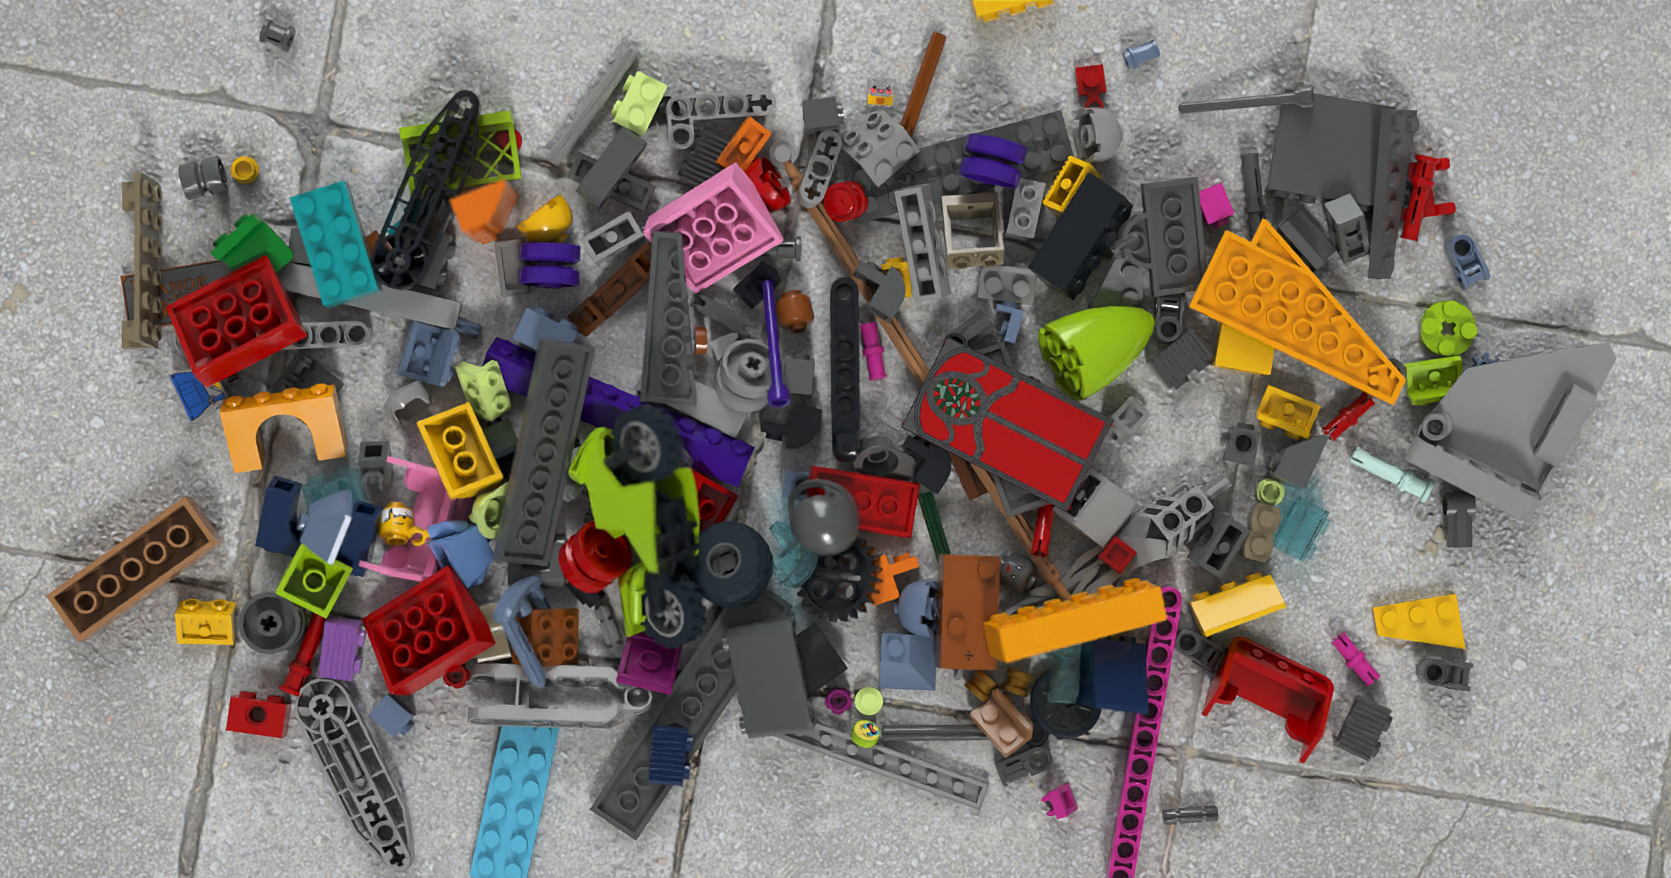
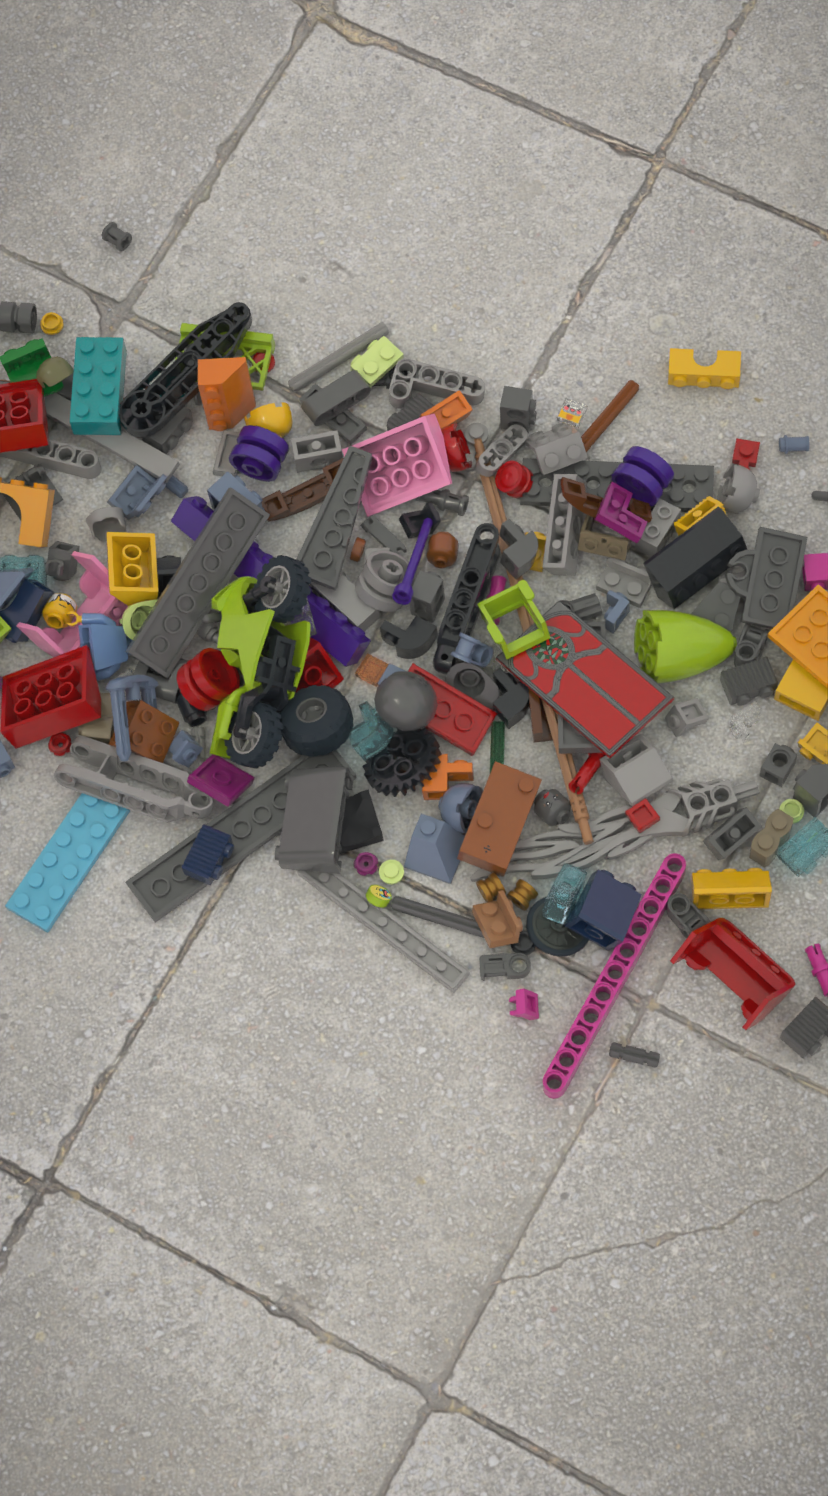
camera: 30 degrees right, 20 degrees down
(281, 249) = (53, 371): none -> olive hair
(484, 389) = (171, 529): yellowish green bracket -> none
(596, 638) = (185, 749): none -> sand blue bracket
(765, 476) = (371, 669): none -> clear orange tile
(874, 433) = (473, 651): none -> sand blue piece
(887, 361) = (505, 602): none -> lime piece
(965, 214) = (589, 504): none -> reddish brown slope
(980, 225) = (615, 515): none -> magenta plate
(1074, 620) = (586, 844): light orange brick -> none

